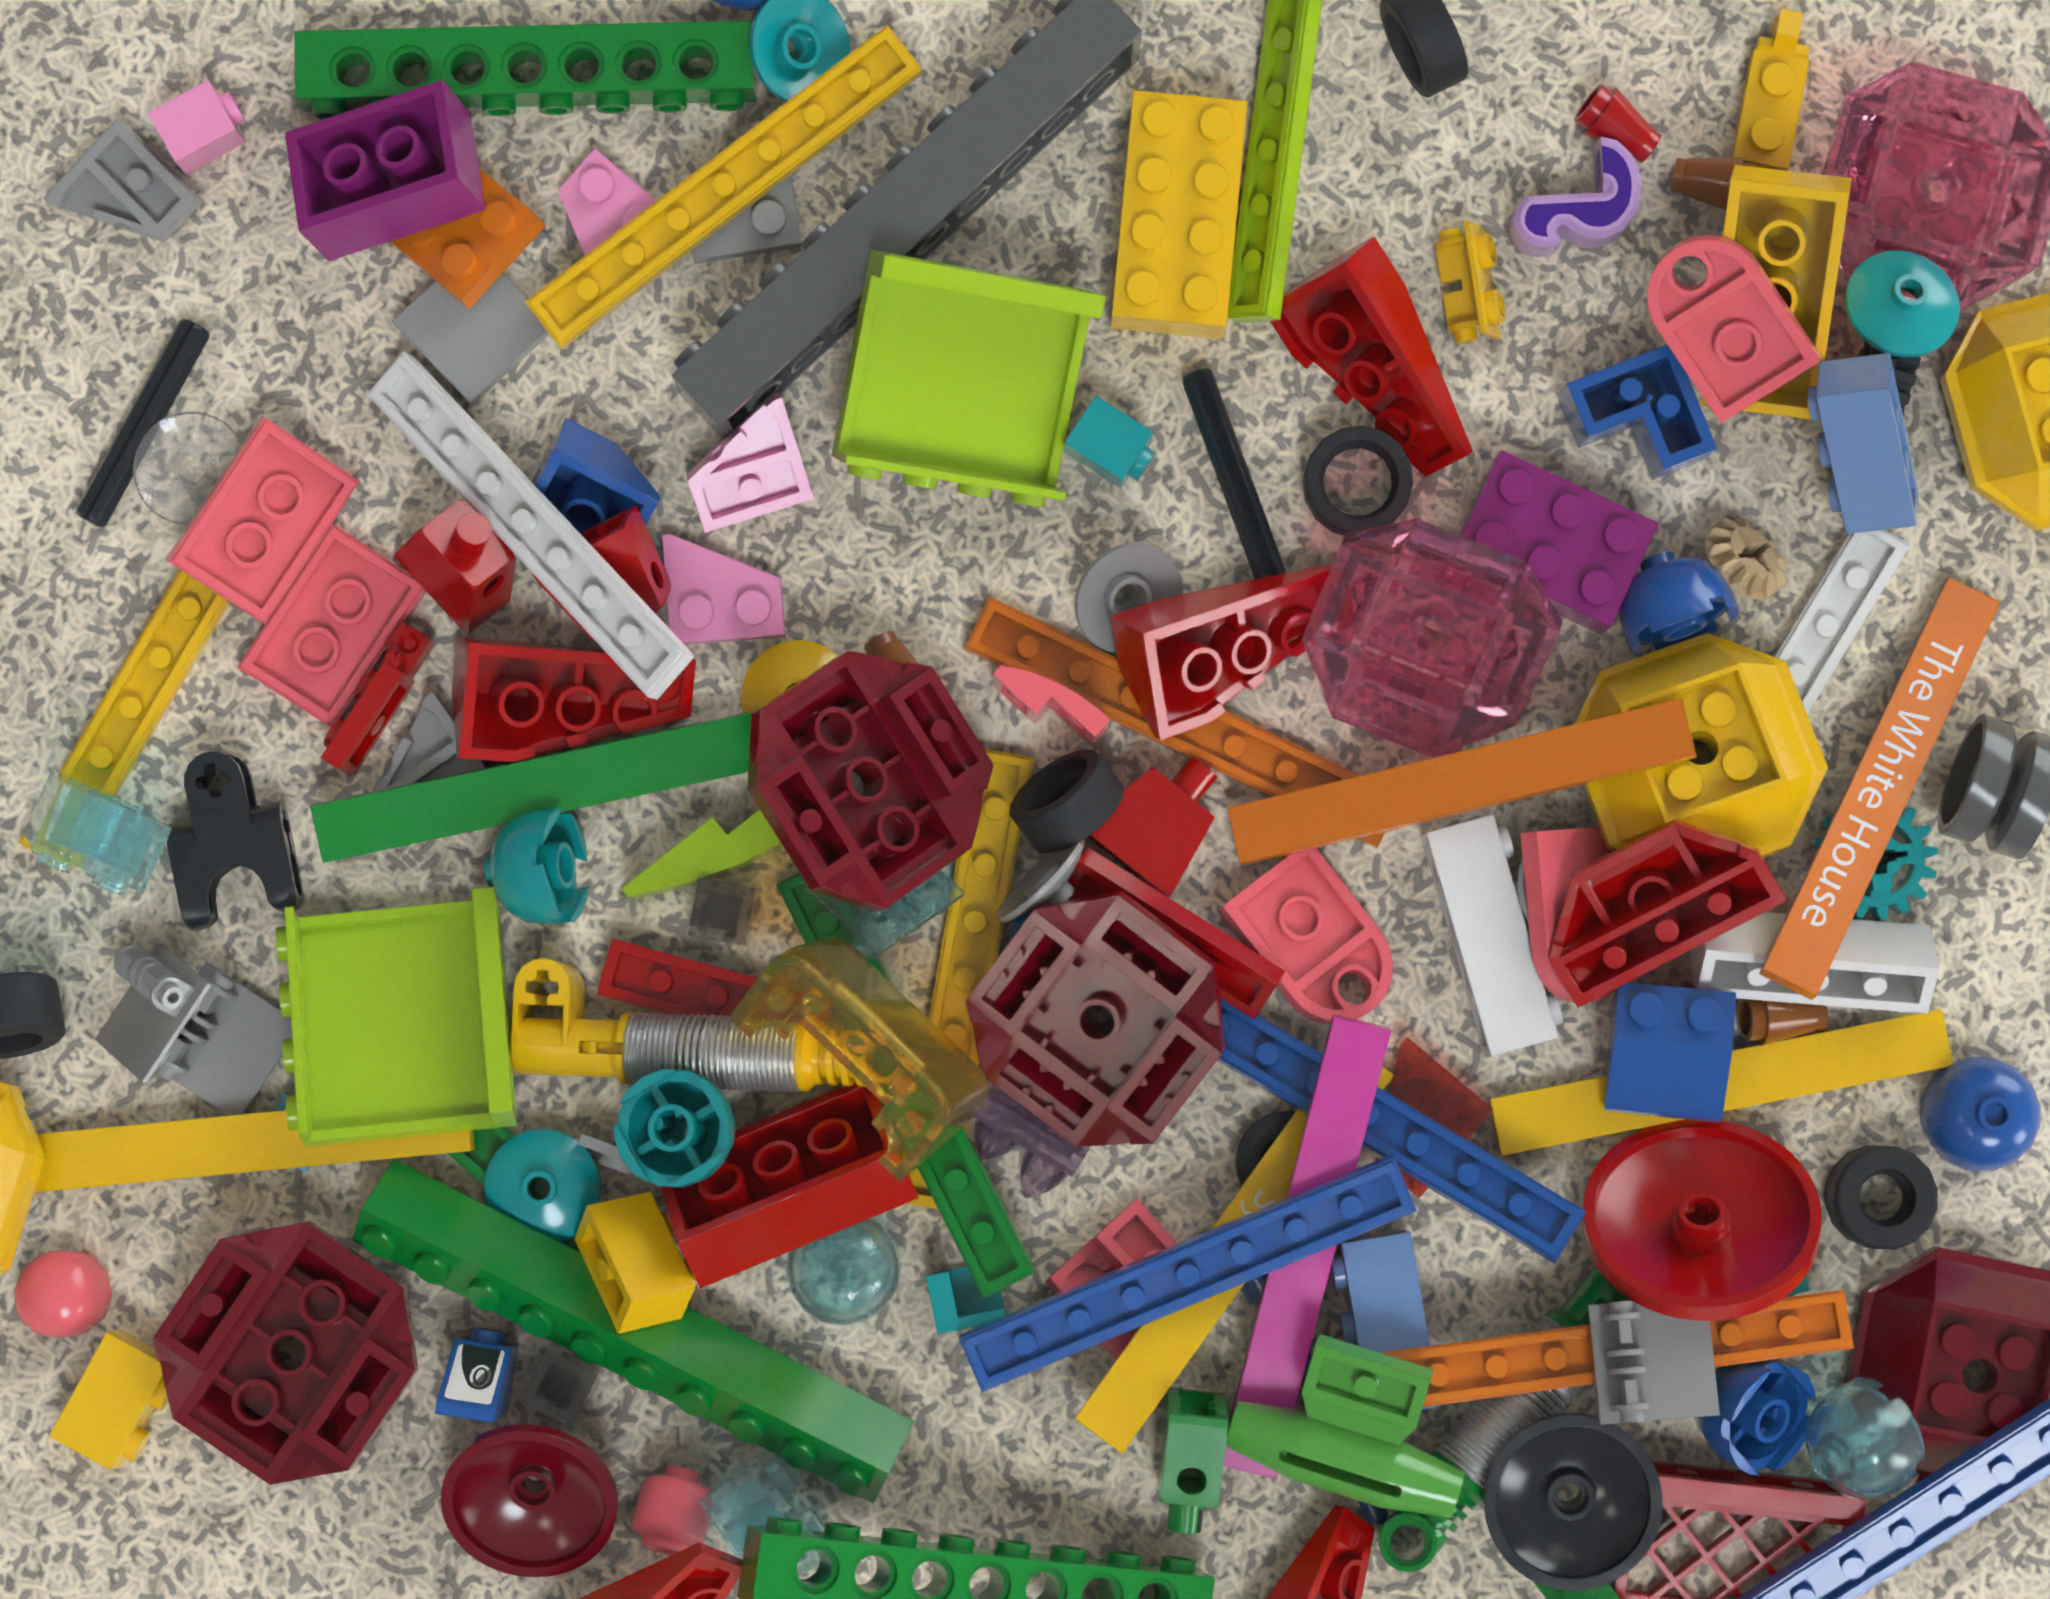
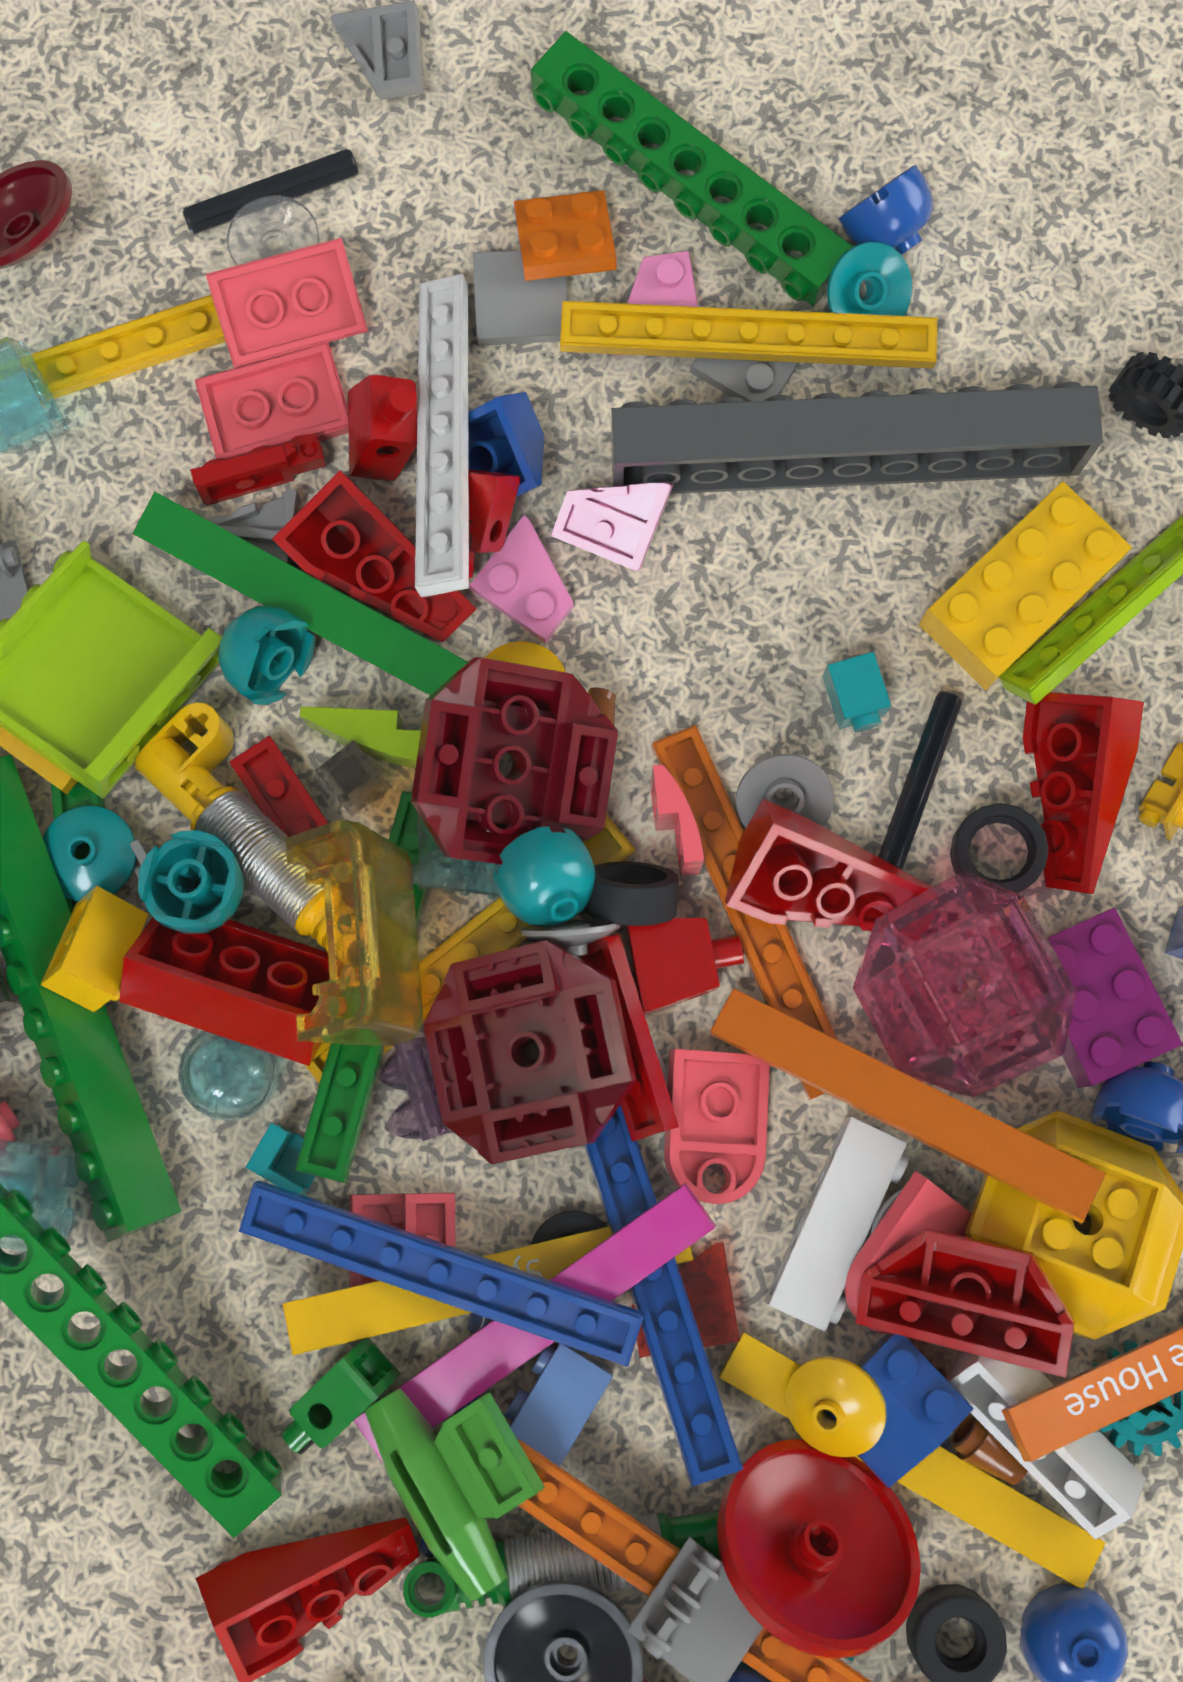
camera: 45 degrees right, 5 degrees down
(199, 126) = (459, 45): bright pink brick -> none
(229, 834) = (96, 471): black piece -> none
(384, 171) = (546, 152): magenta brick -> none
(962, 377) = (799, 566): lime panel -> none
(982, 853) = (545, 877): none -> teal cylinder
(1620, 1072) = (845, 1391): none -> yellow dish

